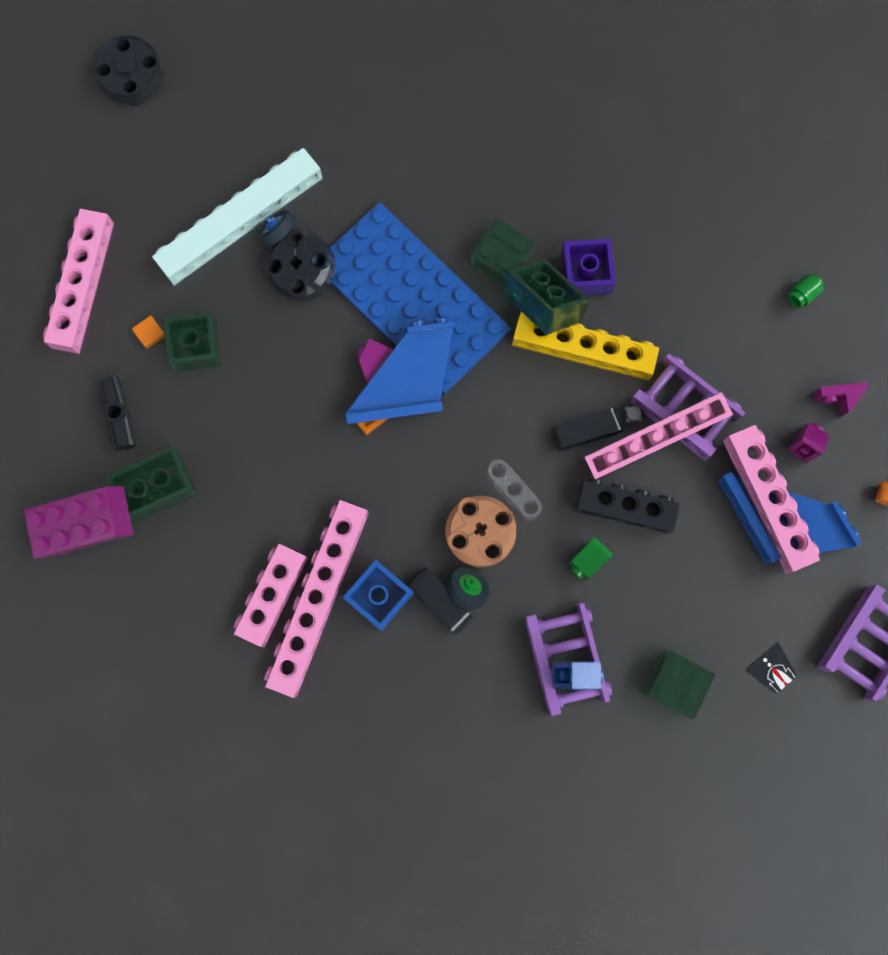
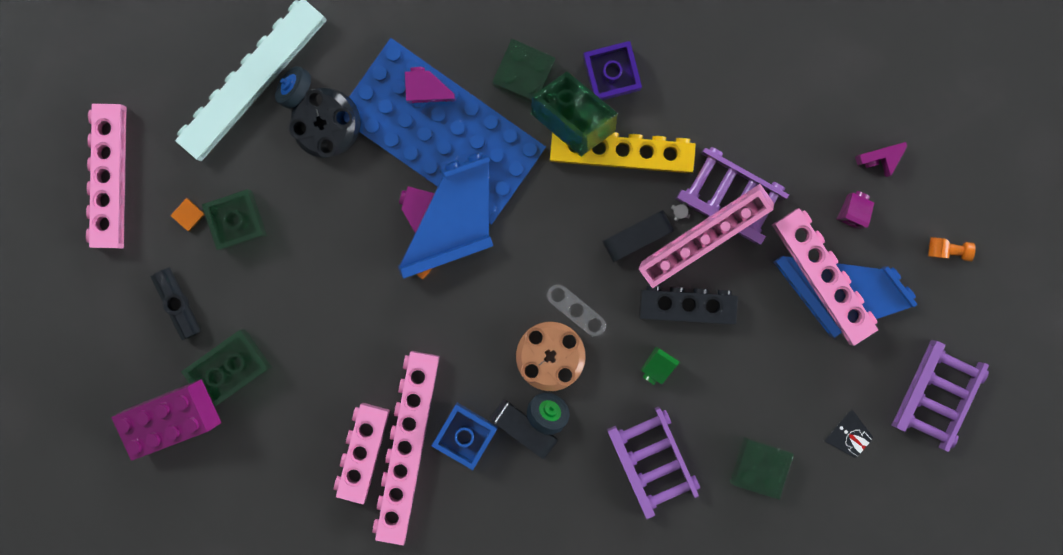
camera: 10 degrees left, 10 degrees up
(405, 249) = (425, 87): none -> magenta slope
(577, 675) = (663, 481): brick -> none
(805, 290) = (834, 54): green brick -> none

